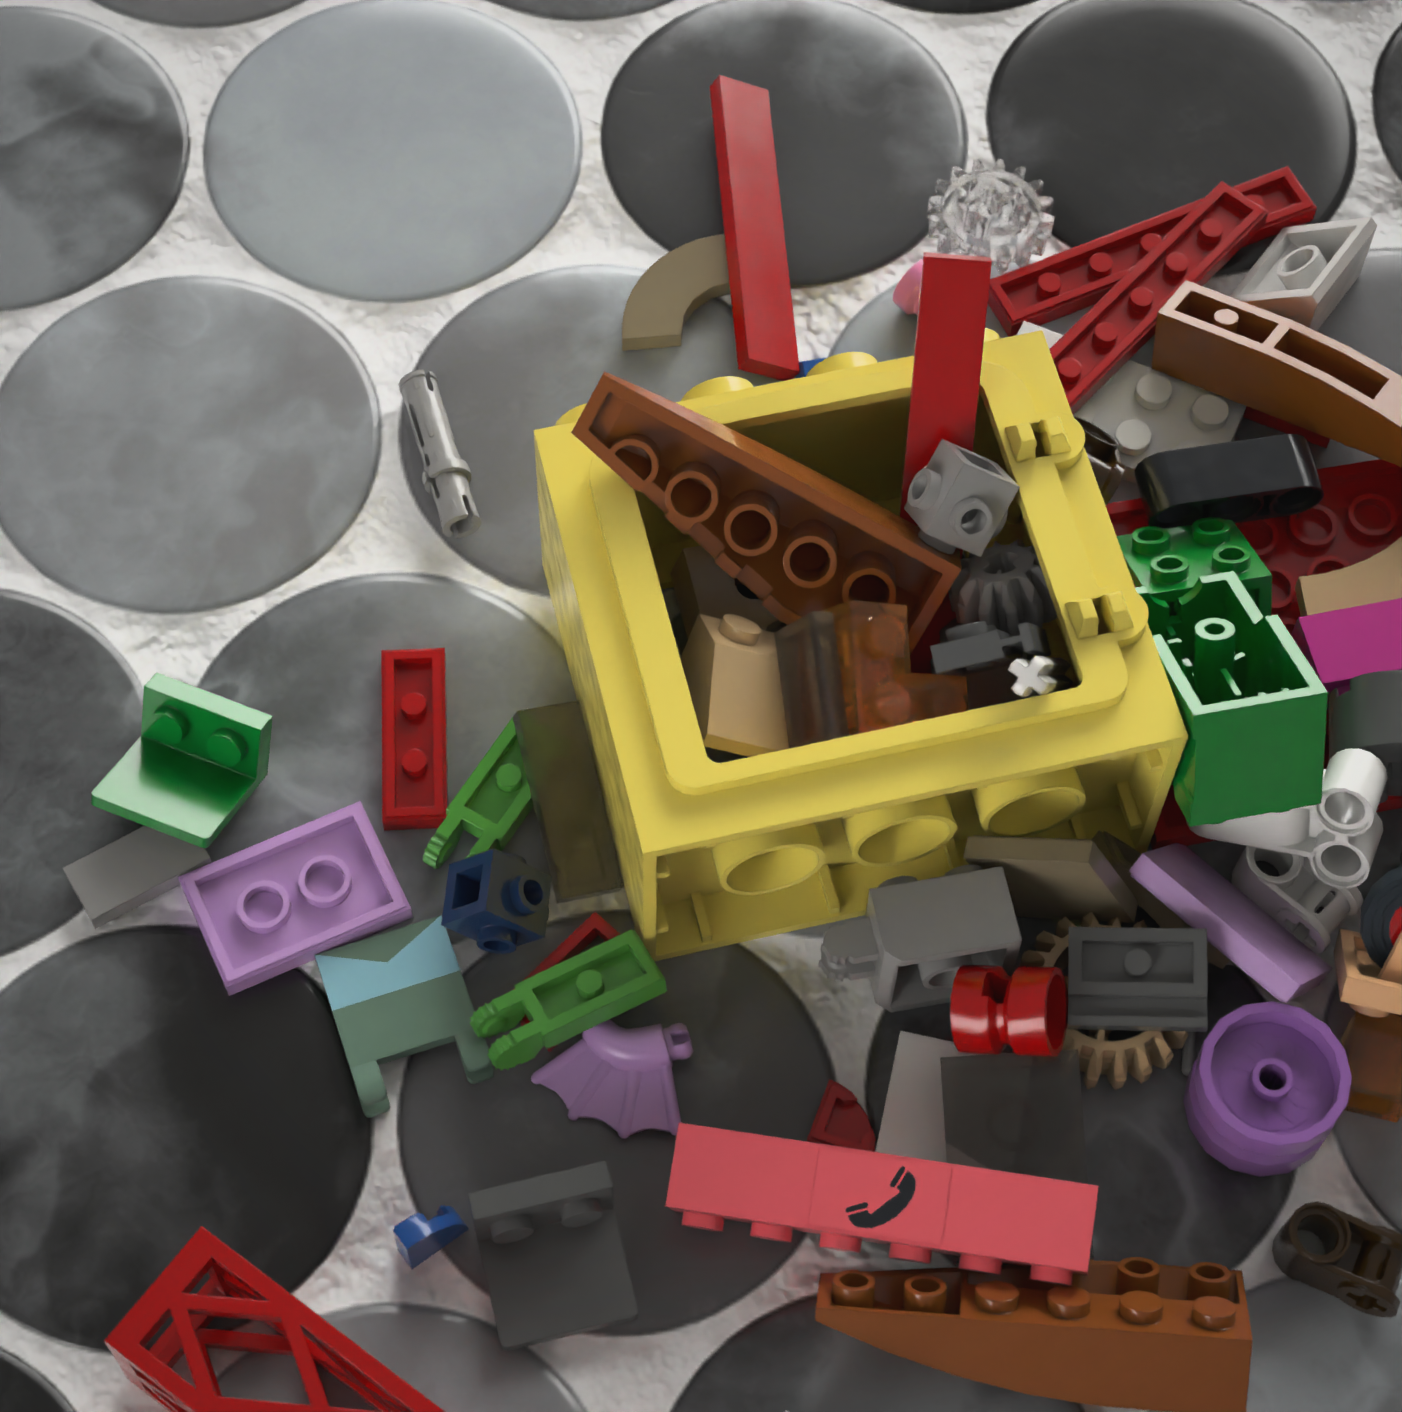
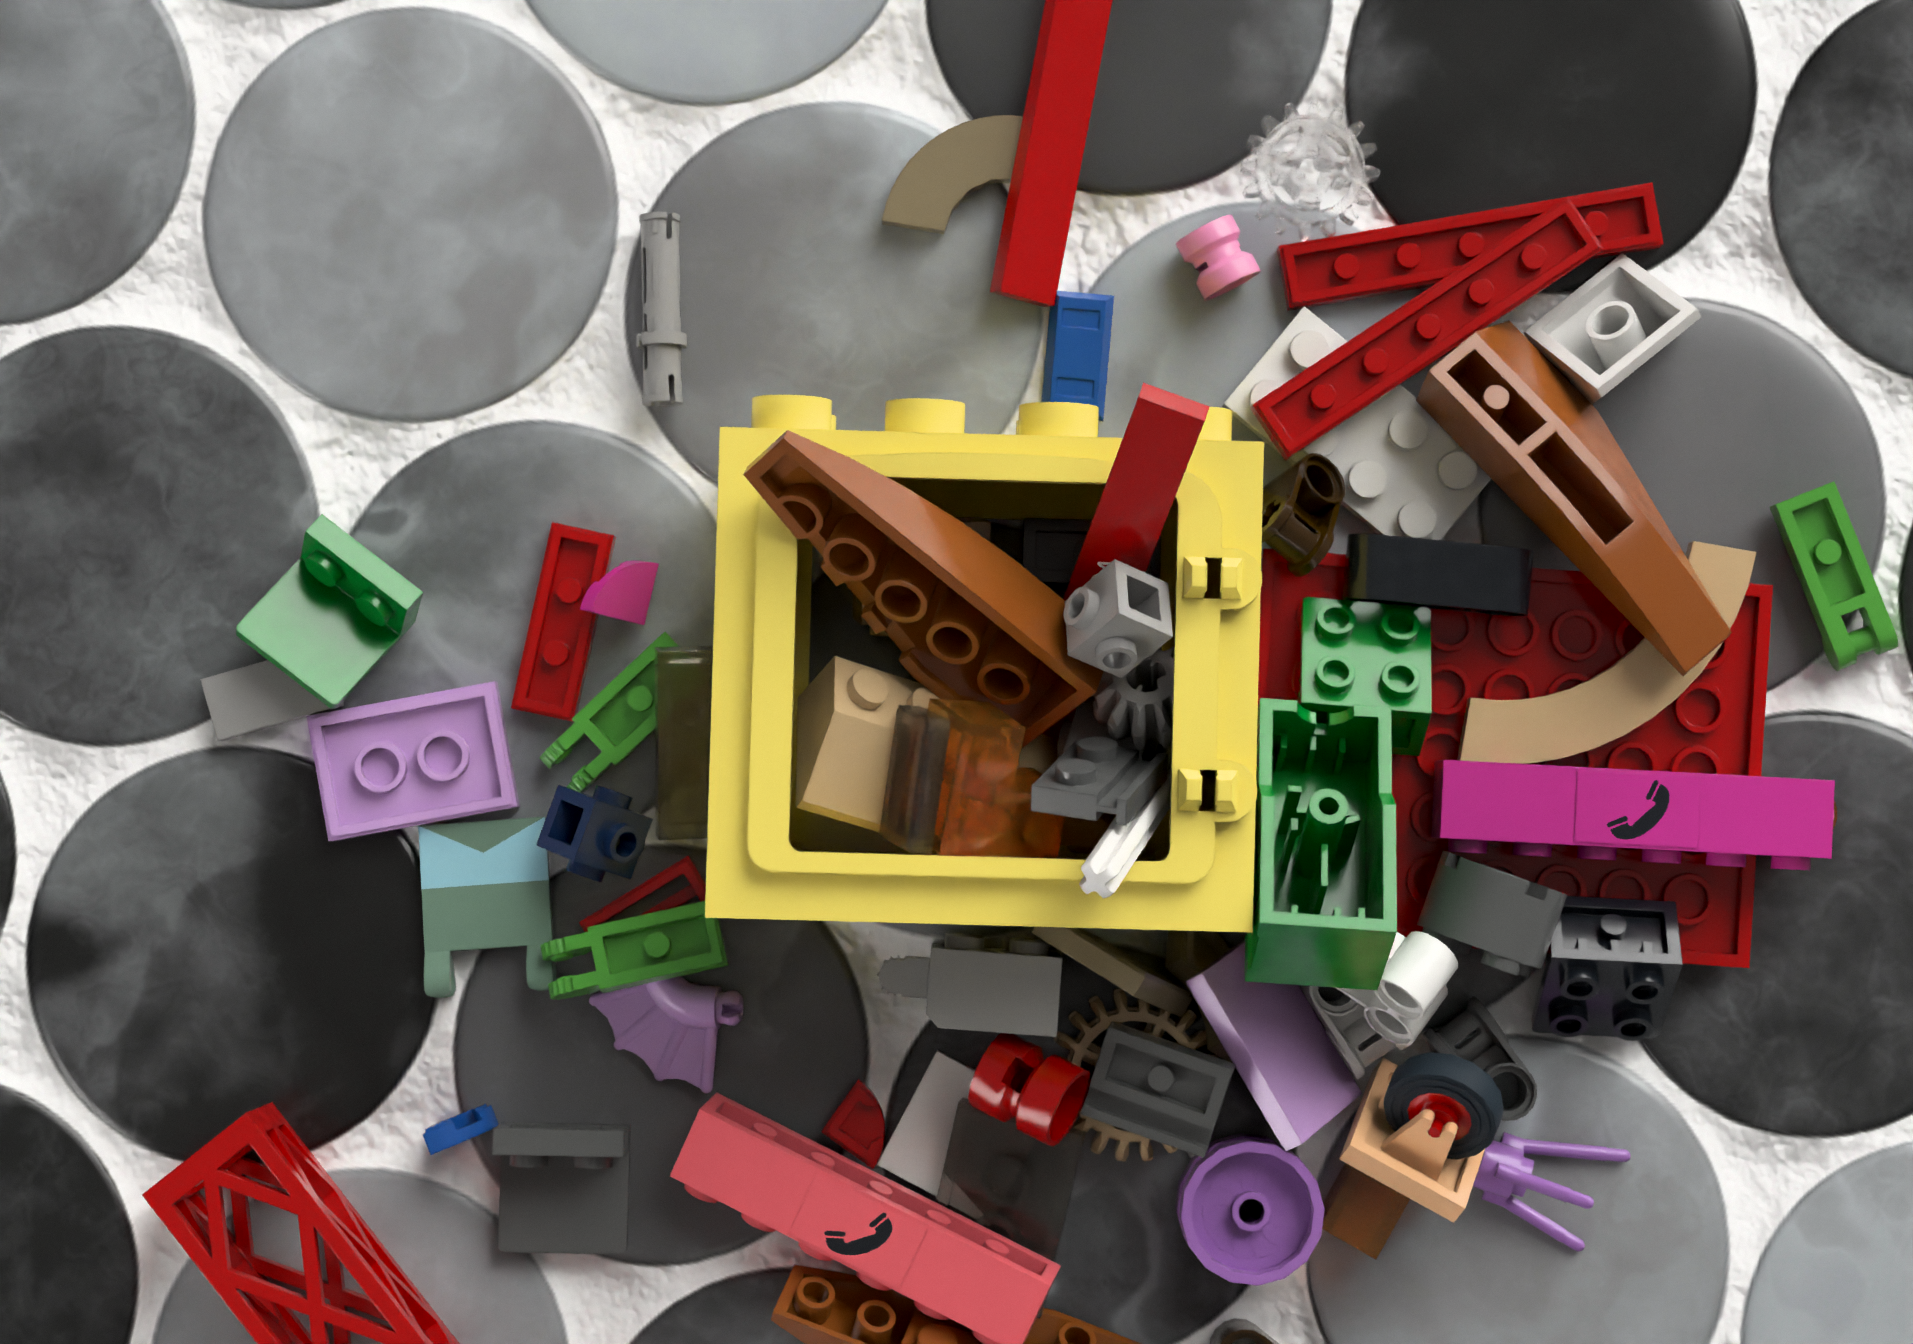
camera: 15 degrees right, 25 degrees up
(467, 694) = (623, 592): none -> dark pink tile

